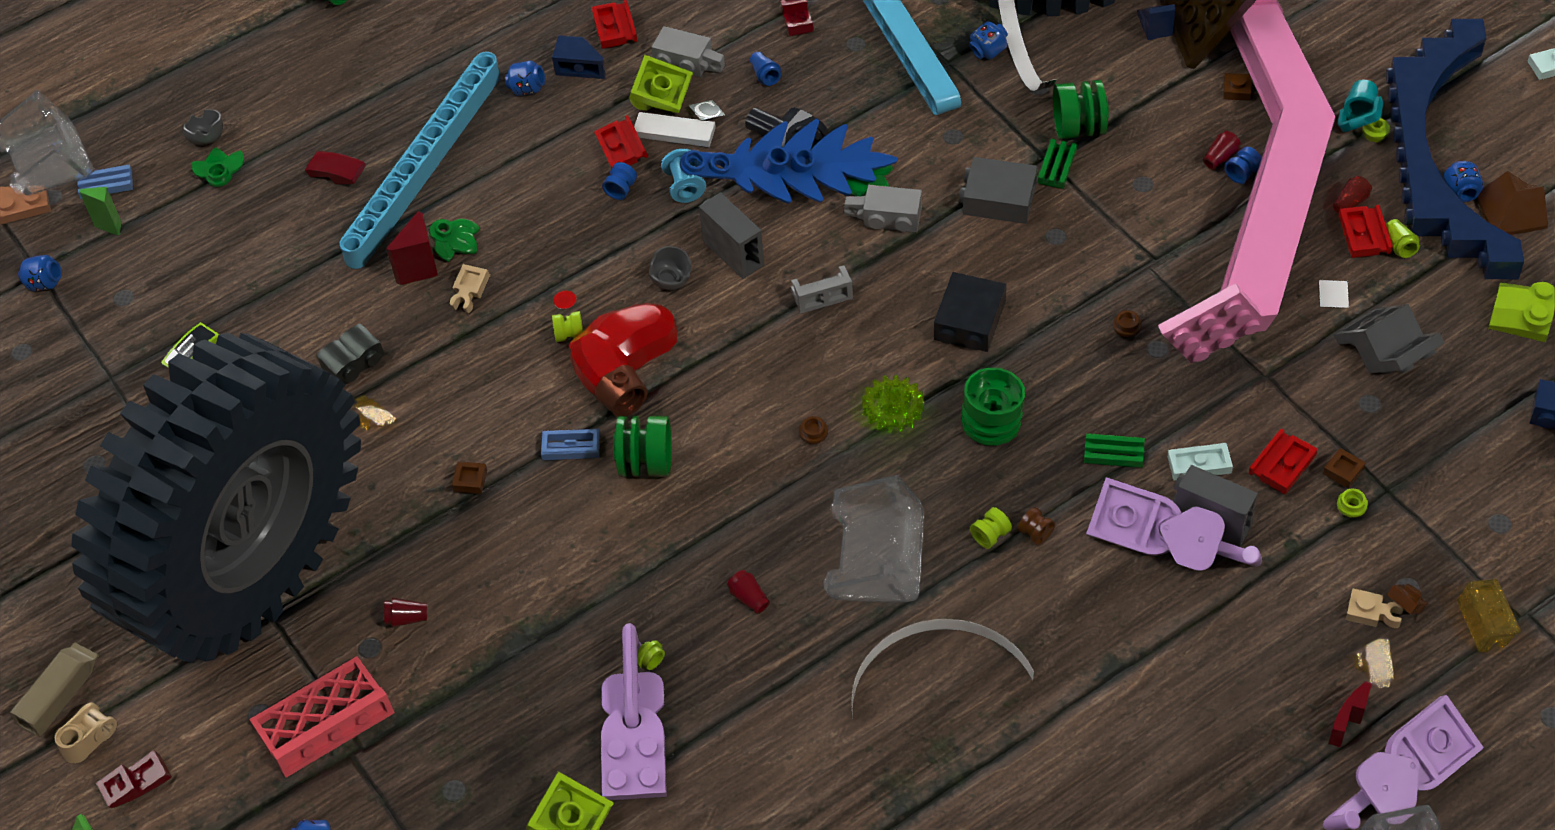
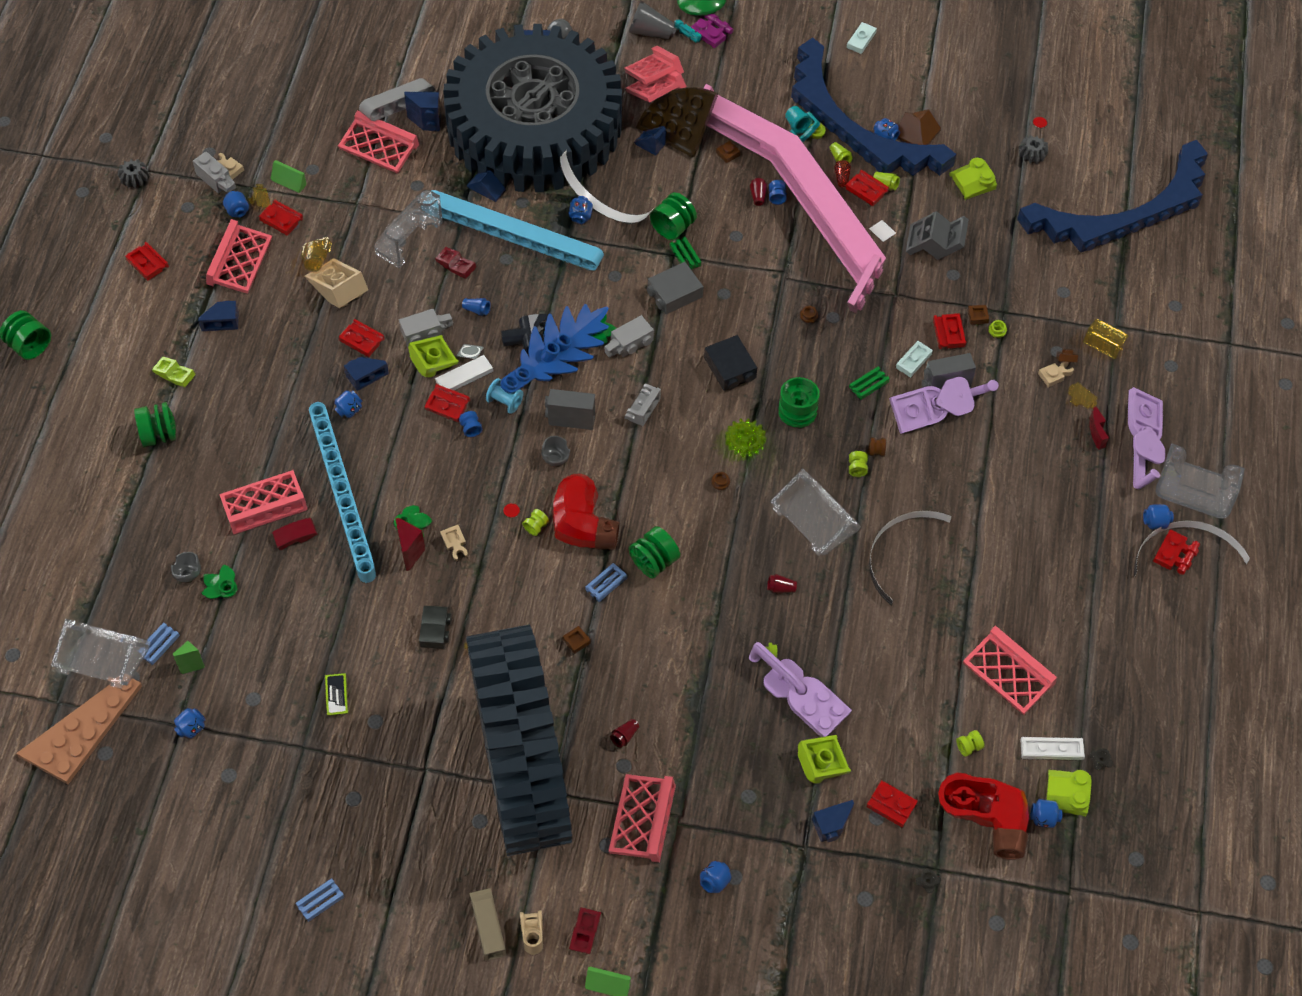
camera: 50 degrees left, 5 degrees up
(339, 129) = (266, 511): none -> coral fence
(1375, 171) = (840, 152): none -> lime cone

